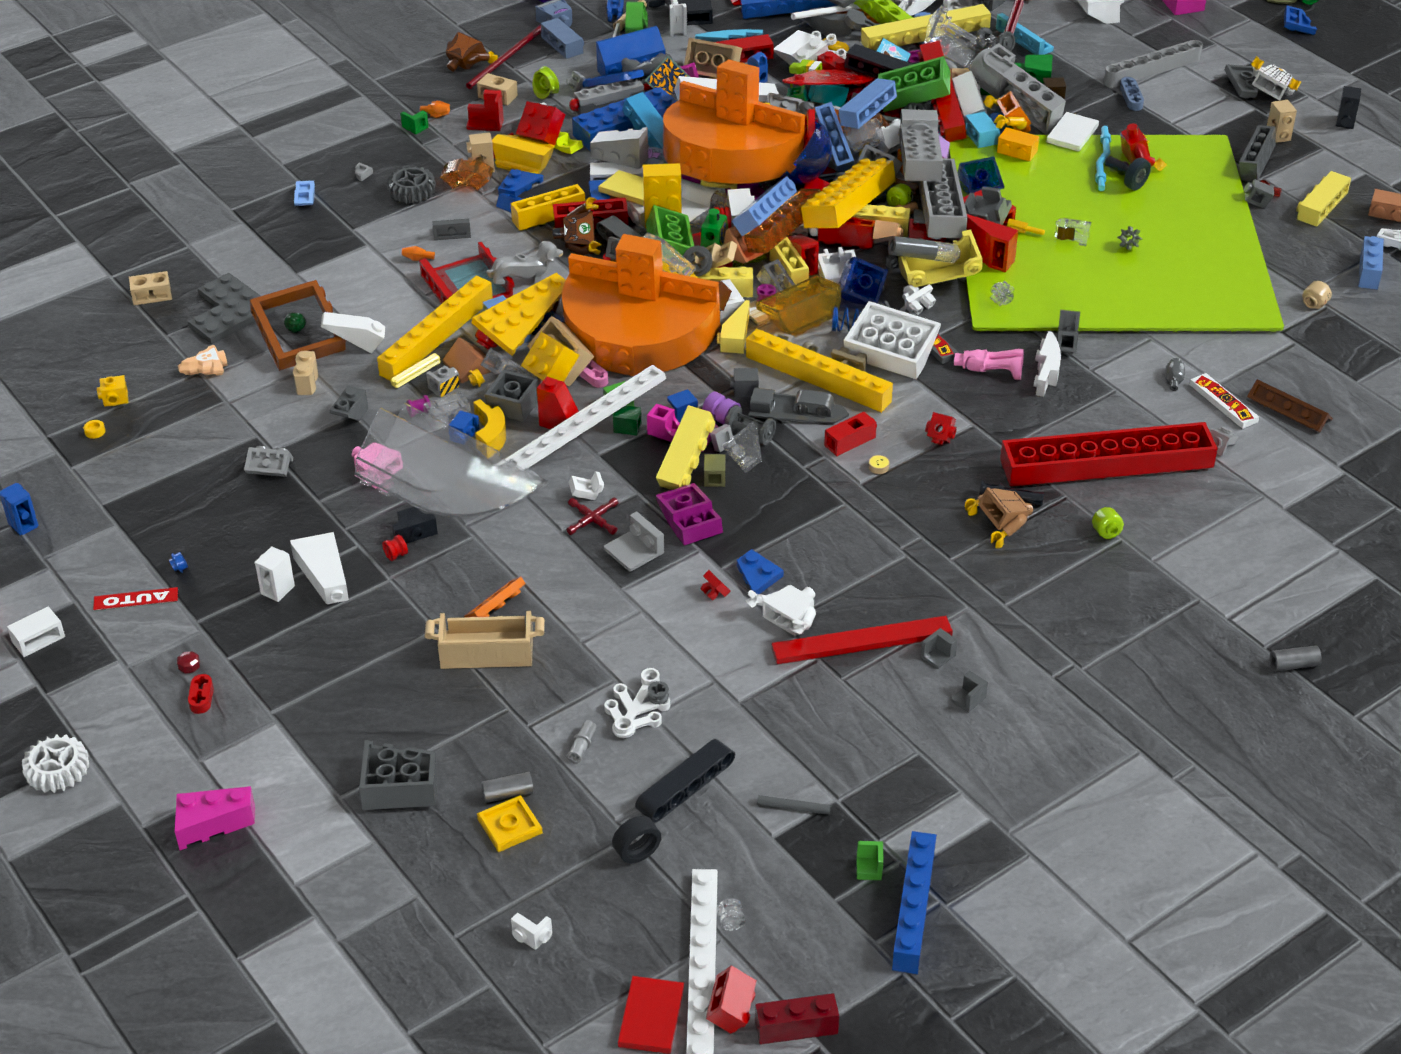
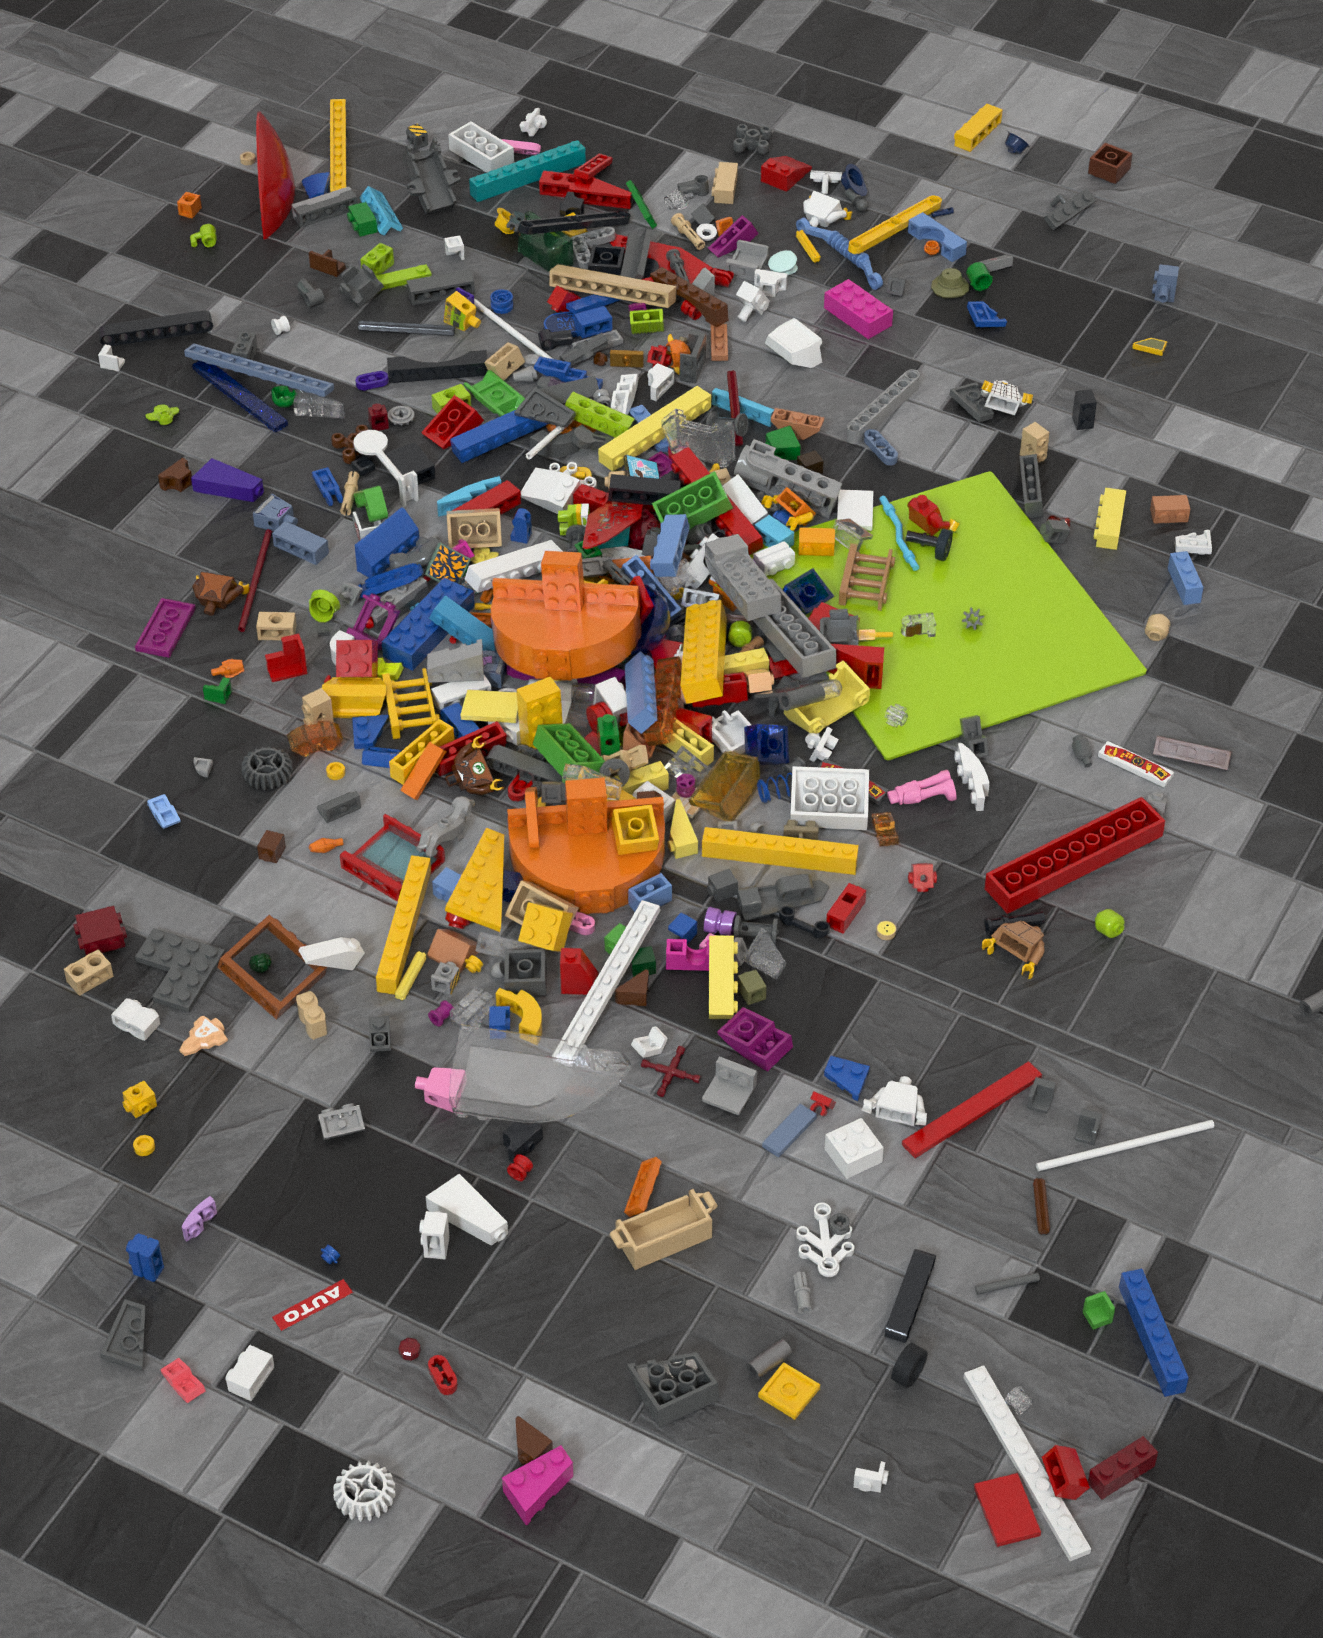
camera: 25 degrees left, 5 degrees up
(85, 497) = (194, 1222): none -> lavender slope
(161, 332) = (135, 1019): none -> white brick
(182, 260) = (100, 930): none -> dark red brick
(229, 773) = (530, 1442): none -> reddish brown slope
(370, 241) = (271, 846): none -> reddish brown brick
(408, 69) = (165, 627): none -> magenta tile
(469, 204) = (335, 771): none -> yellow tile
(537, 219) = (423, 771): none -> orange tile
(554, 163) = (395, 712): none -> yellow fence
(572, 95) = (371, 602): none -> magenta panel
(590, 250) = (531, 800): none -> orange beam
(604, 440) = (634, 991): none -> reddish brown slope
(669, 599) = (789, 1130): none -> sand blue tile
(675, 365) = (654, 890): none -> medium blue brick
(676, 301) = (635, 829): none -> yellow brick
(718, 632) = (853, 1148): none -> white brick
(790, 426) = (787, 916): none -> black bar
(875, 747) = (1041, 1206): none -> reddish brown axle
(934, 383) = (885, 829): none -> clear orange slope
(968, 147) = (775, 558): none -> white brick
(1001, 722) = (1124, 1145): none -> white piece
(1038, 170) = (850, 580): none -> medium nougat fence
(1053, 145) = (849, 532): none -> clear panel
(1063, 56) = (801, 424): none -> nougat slope

